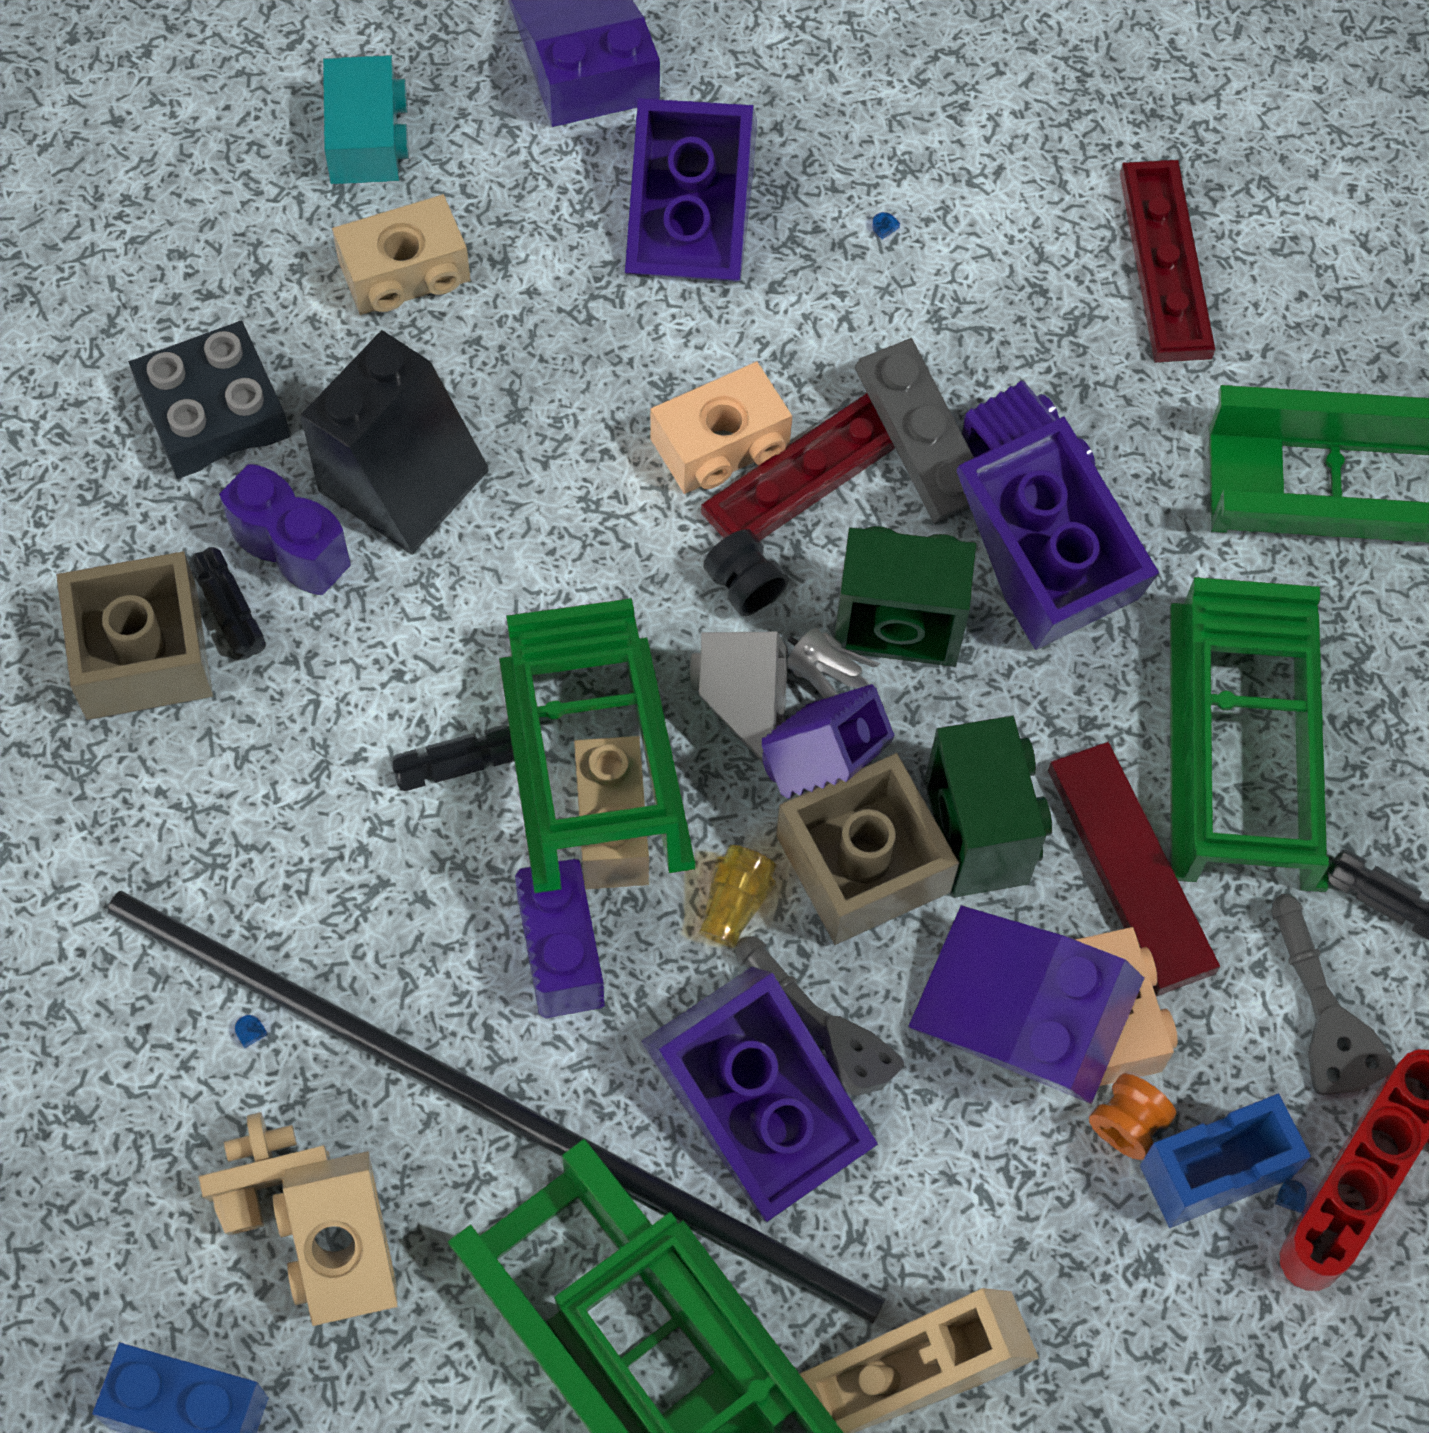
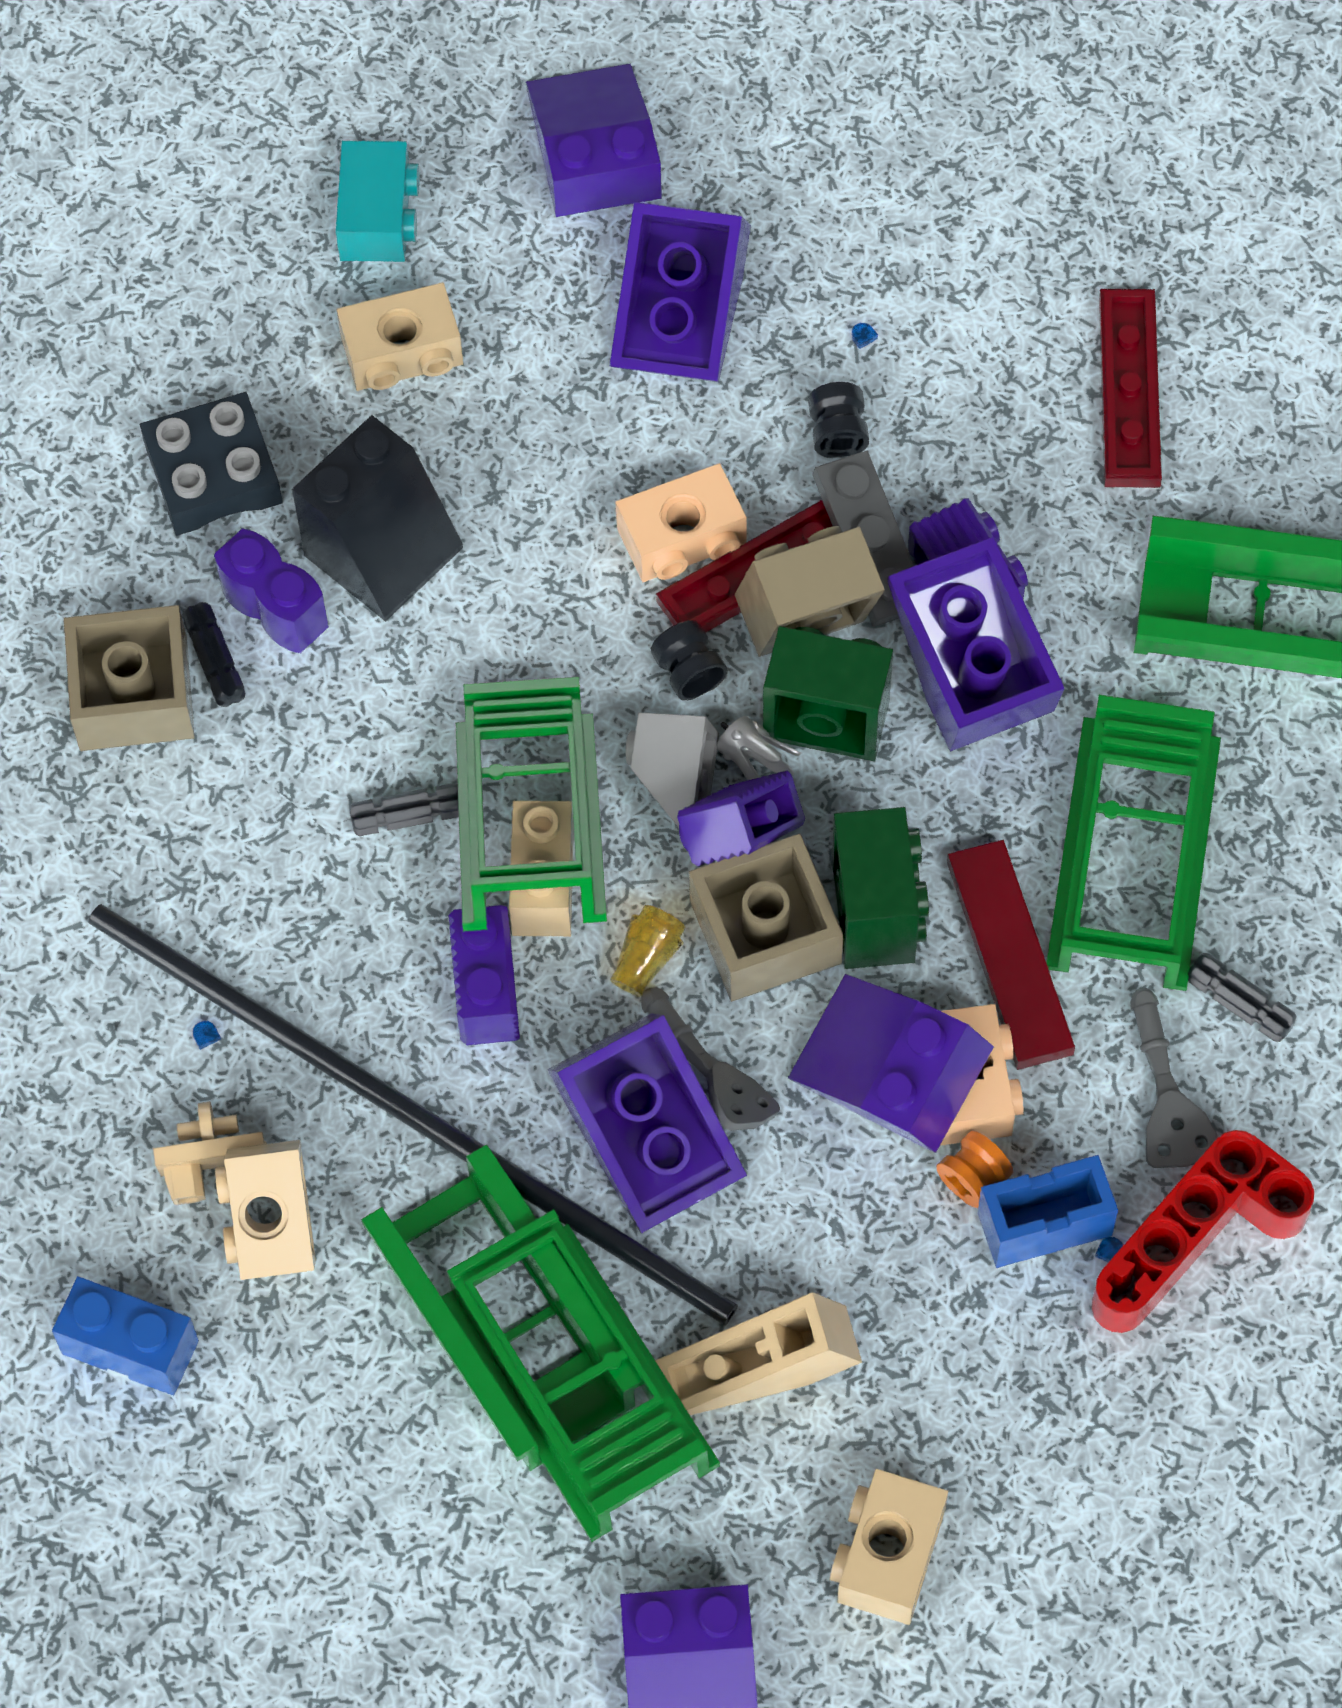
camera: 10 degrees right, 0 degrees up
(874, 316) = (838, 414): none -> black wheel
(876, 481) = (813, 586): none -> dark tan brick

